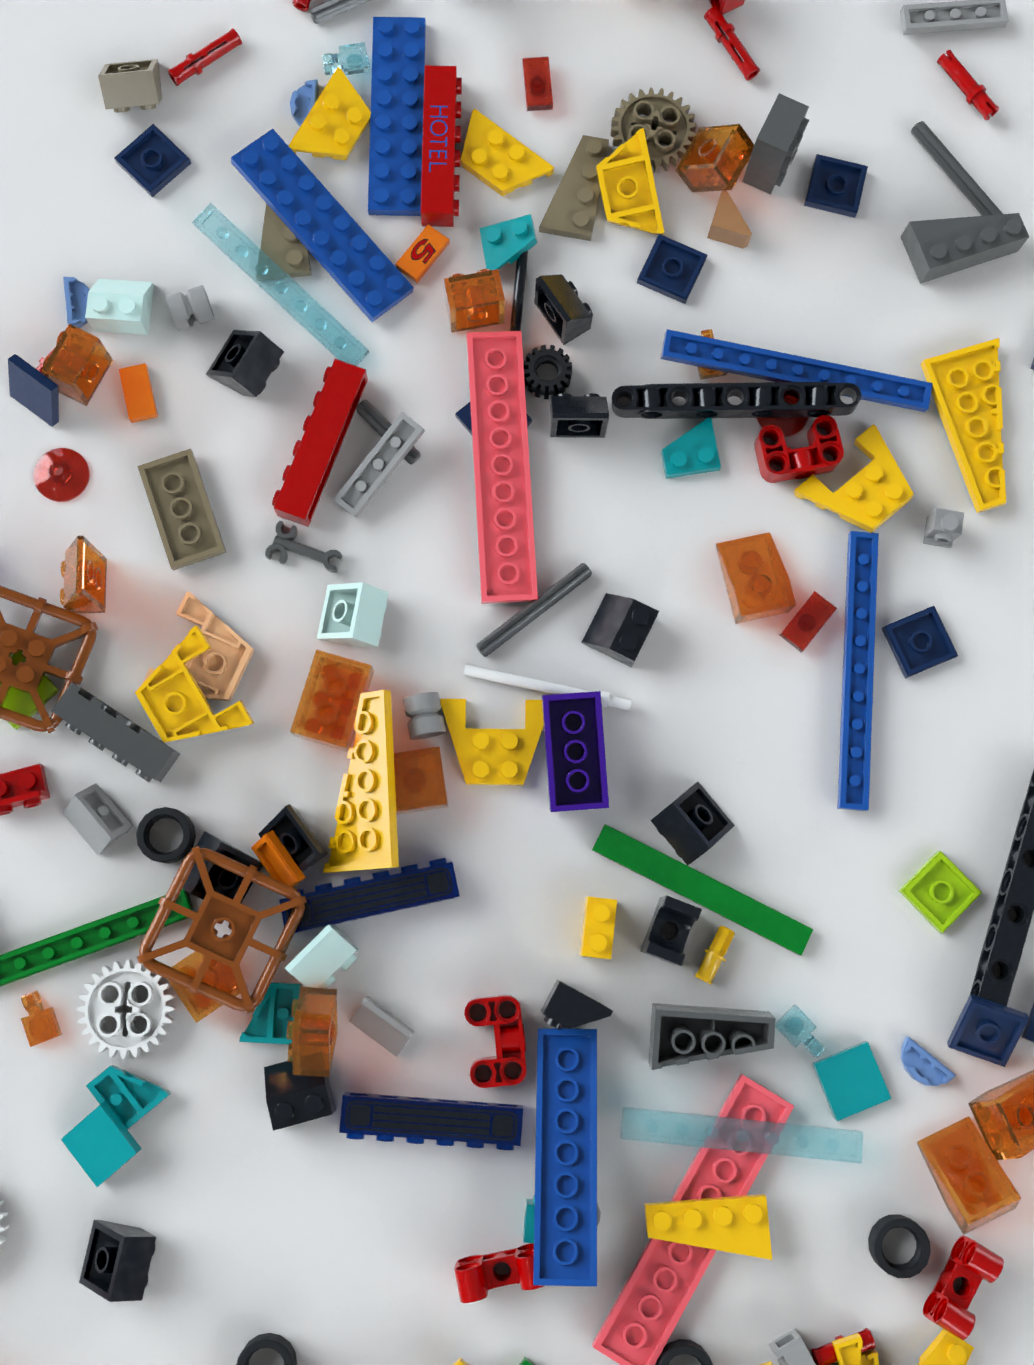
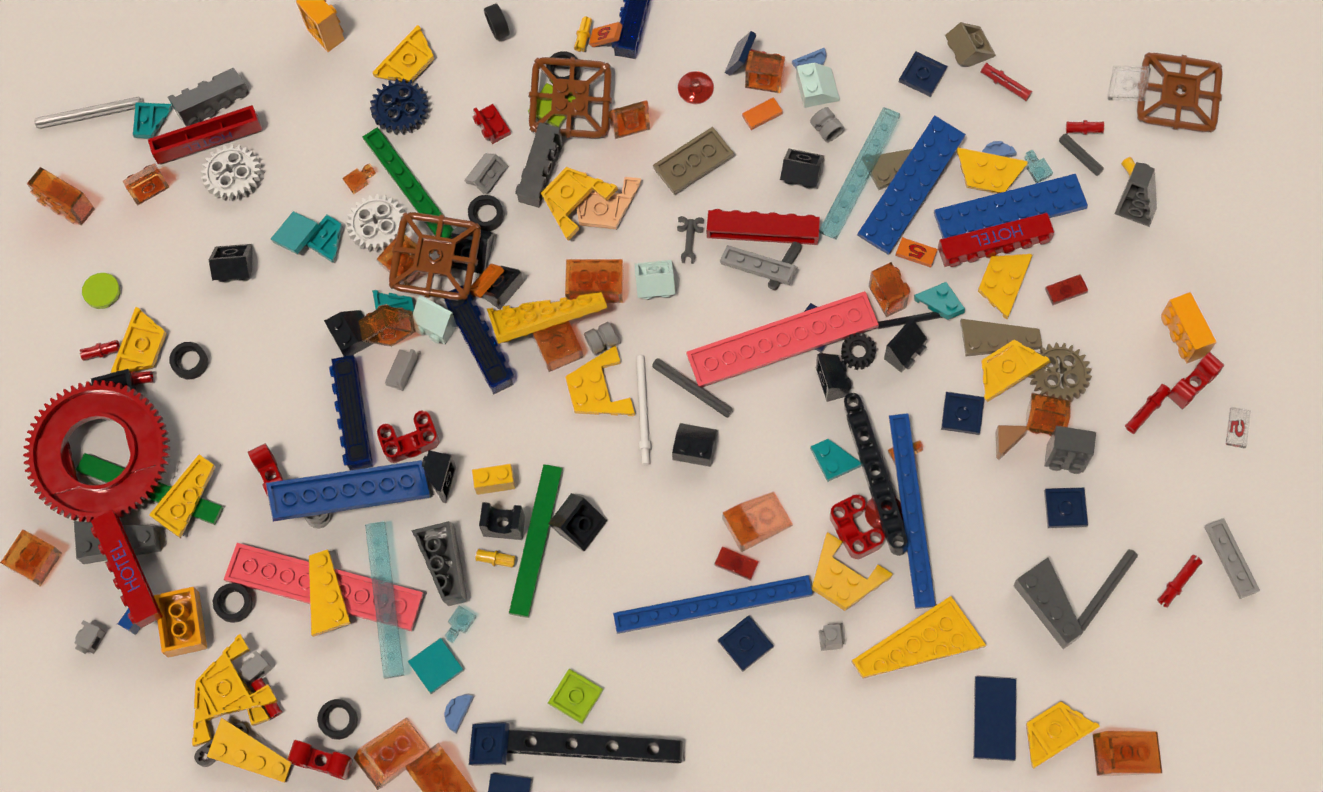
camera: 85 degrees right, 10 degrees down
(575, 751) = (602, 432): dark purple brick -> none

